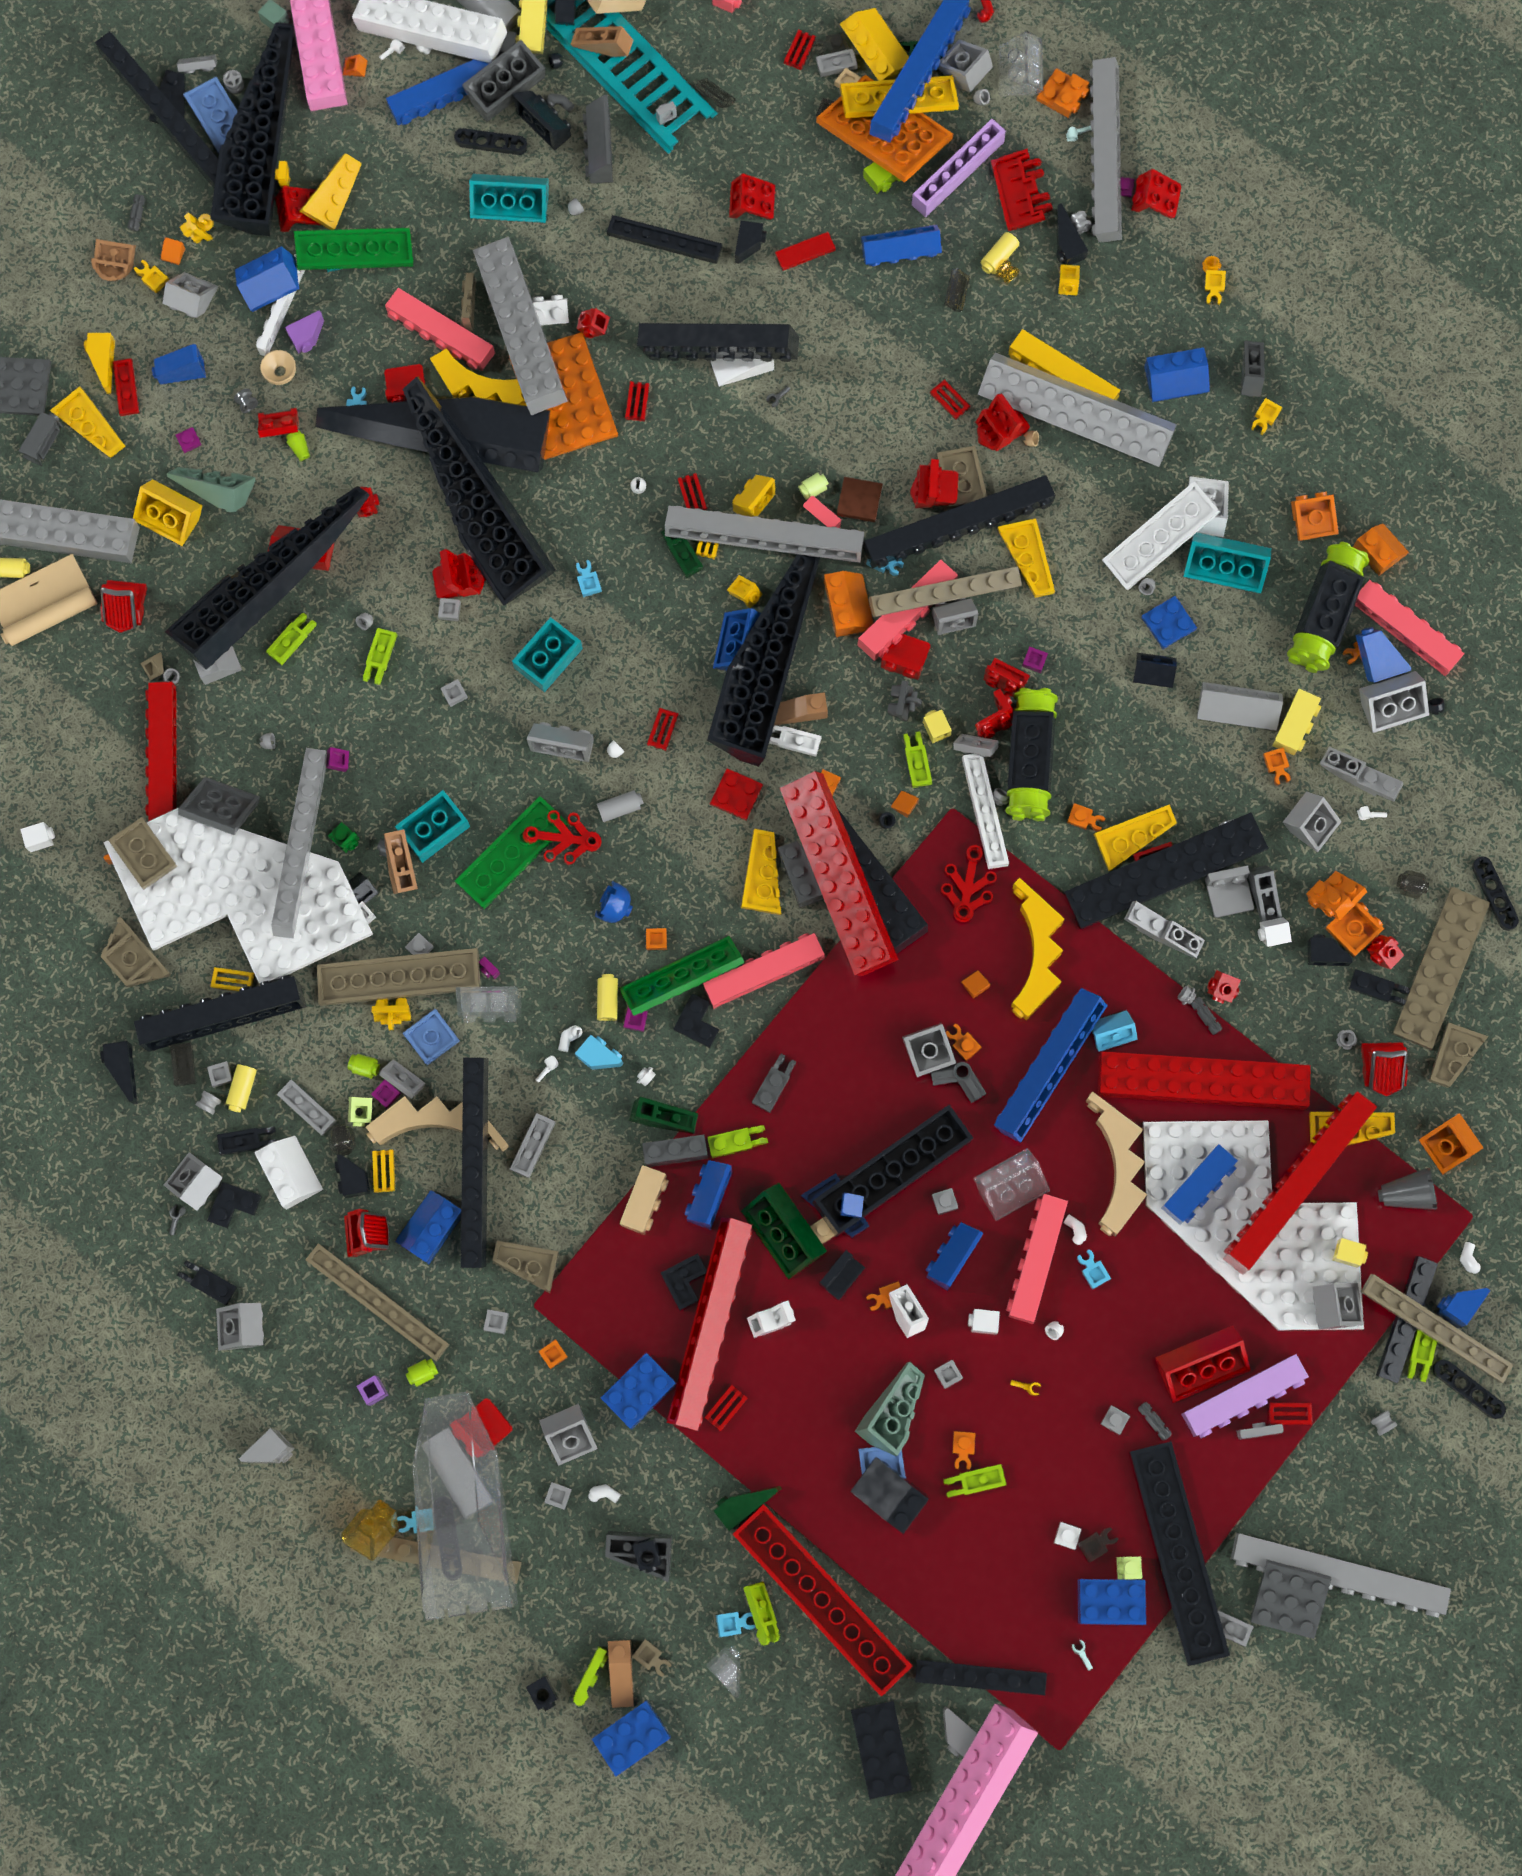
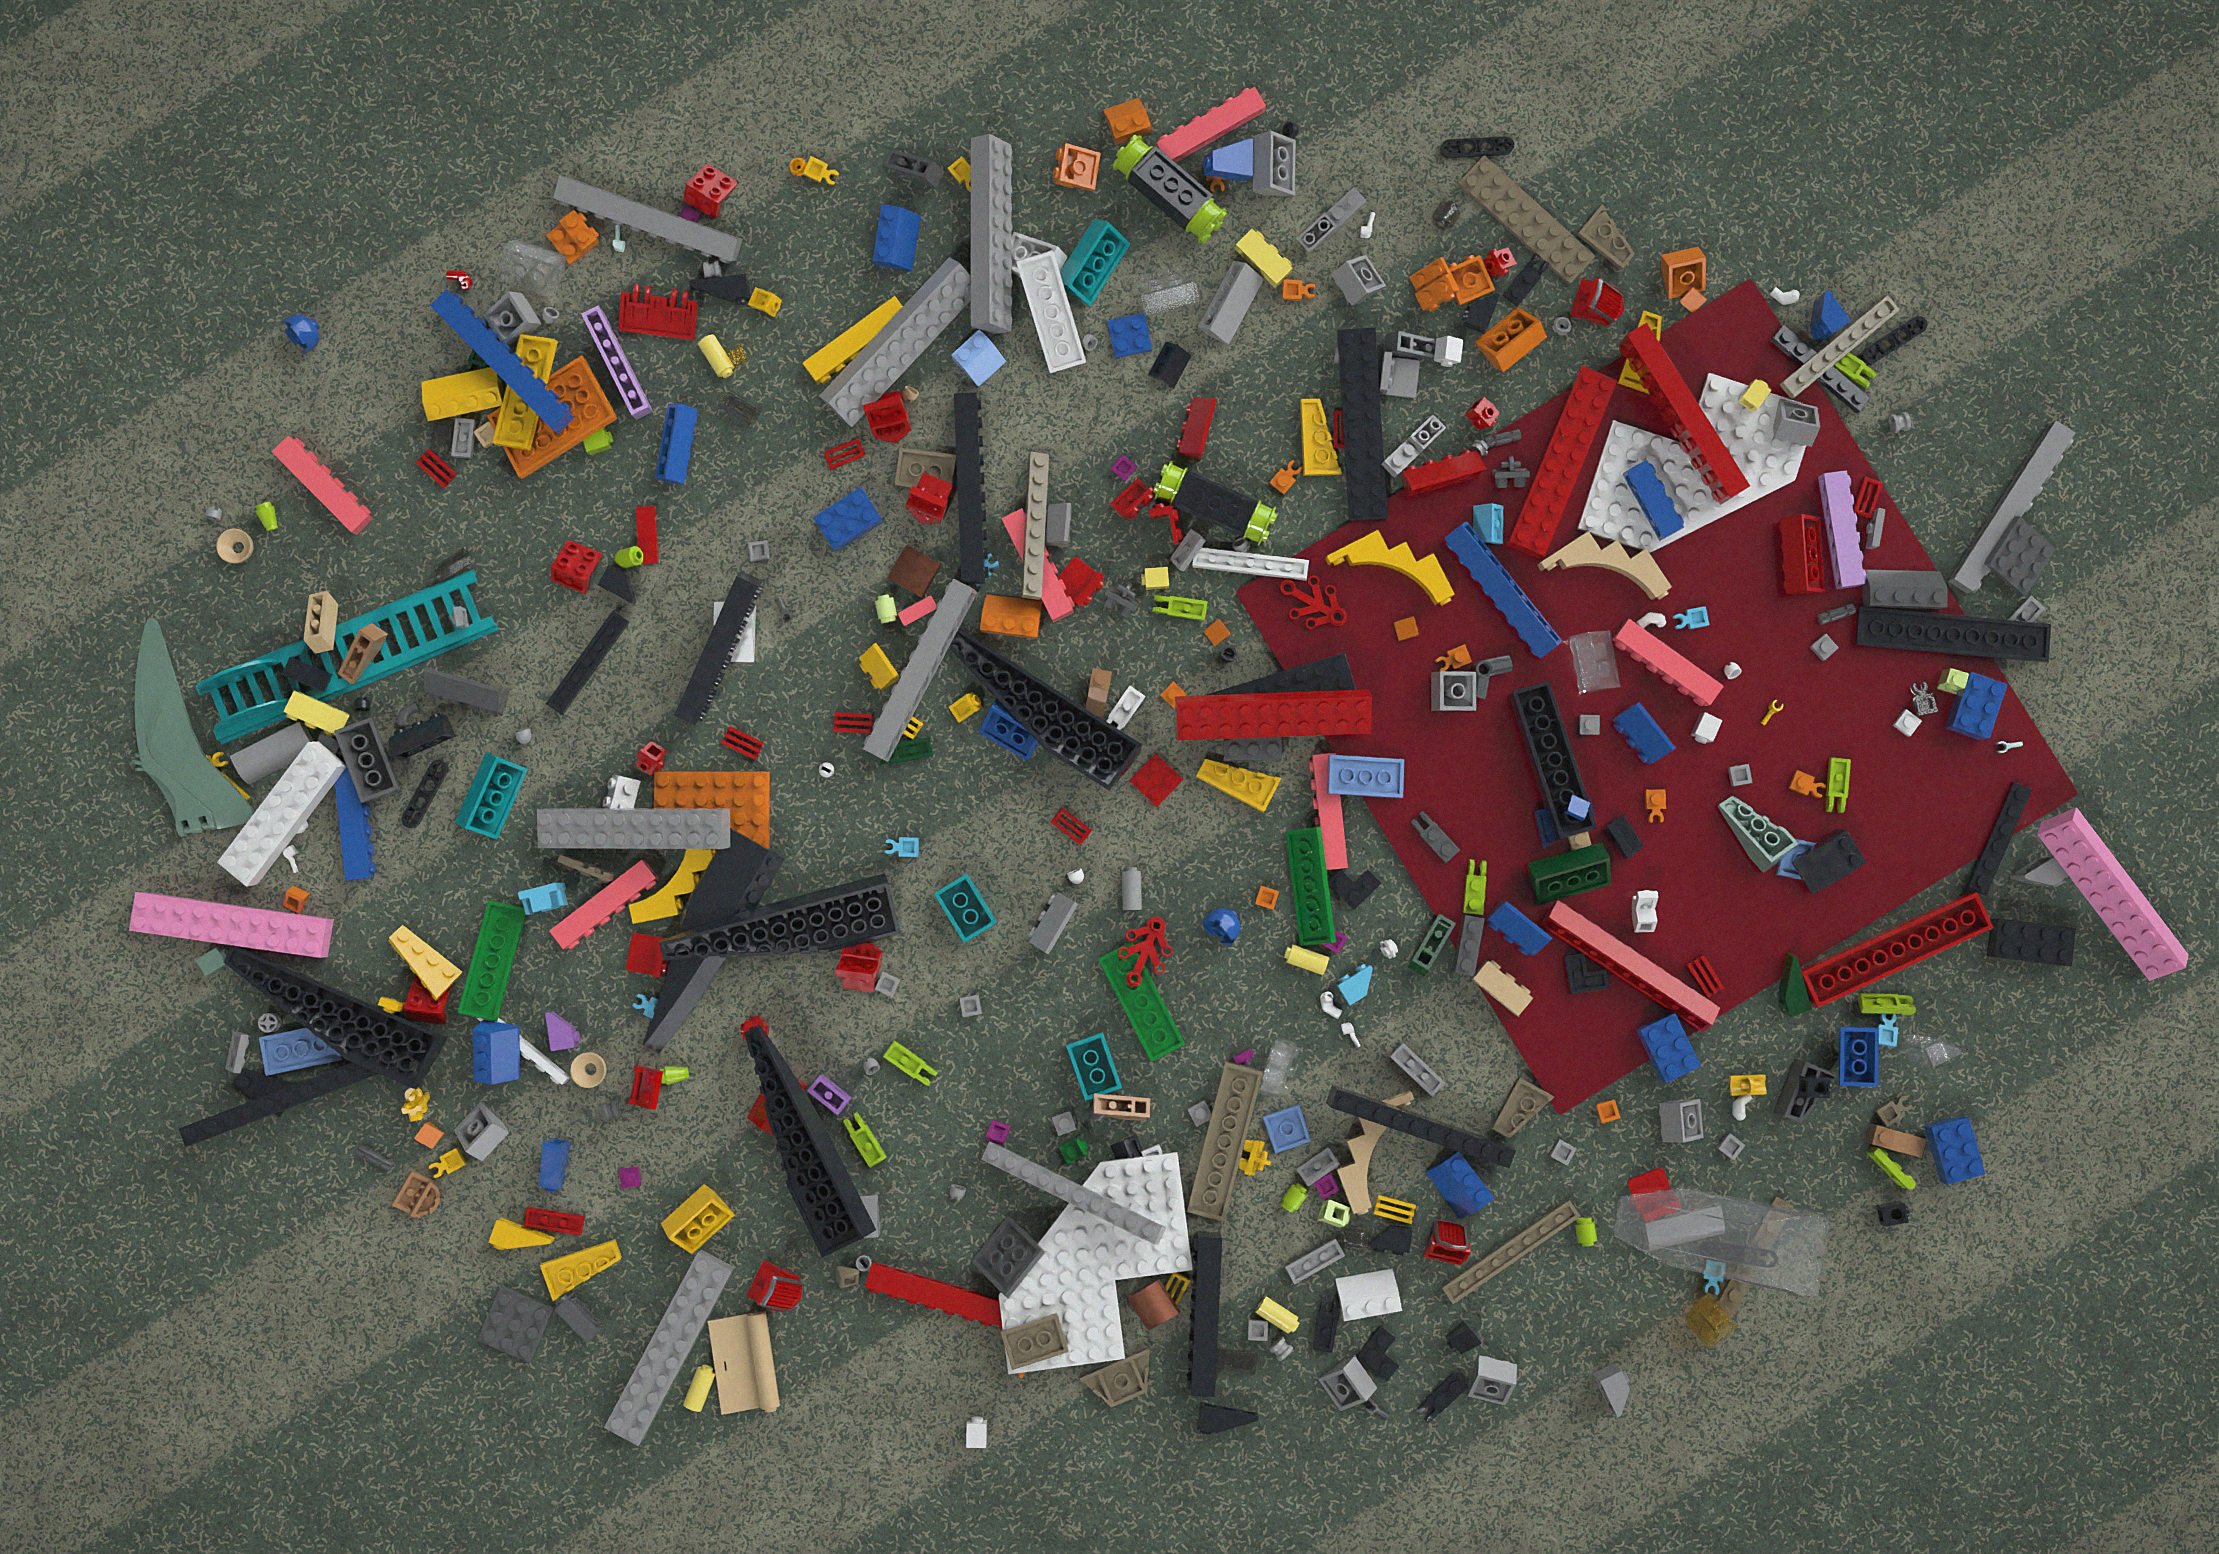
camera: 75 degrees left, 10 degrees up
(214, 962) = (1153, 1304): none -> copper slope
(221, 491) = (693, 1162): sand green wedge -> none
(273, 1280) = (1462, 1338): none -> black slope
(324, 589) = (829, 1094): none -> medium lavender brick
(367, 819) = (1064, 1123): none -> light grey plate
(372, 1390) = (1589, 1280): medium lavender brick -> none
(430, 275) = (544, 898): none -> medium azure panel
(627, 1490) = (1747, 1085): none -> yellow hips
(695, 1595) = (1858, 1056): none -> blue slope
(777, 240) = (629, 557): none -> lime brick
(811, 990) = (1365, 776): none -> medium blue plate
(827, 354) = (758, 551): none -> light grey tile
(887, 422) = (848, 519): none -> blue brick
(908, 1311) = (1676, 790): white slope -> none
(1028, 553) = (1018, 437): yellow wing -> none
(1090, 488) = (978, 358): none -> light blue slope
(1100, 714) = (1196, 428): none -> red slope
(1146, 965) = (1442, 473): none -> red slope
(1168, 1026) = (1518, 474): none -> dark grey hips
(1207, 1484) = (1904, 590): none -> dark grey slope
(1215, 456) = (991, 234): none -> light grey brick
(1228, 640) = (1167, 289): none -> clear slope
(1311, 992) = (1511, 339): none -> orange slope
(1410, 1191) = (1717, 323): dark grey cone -> none
(1426, 1159) = (1693, 300): none -> orange slope

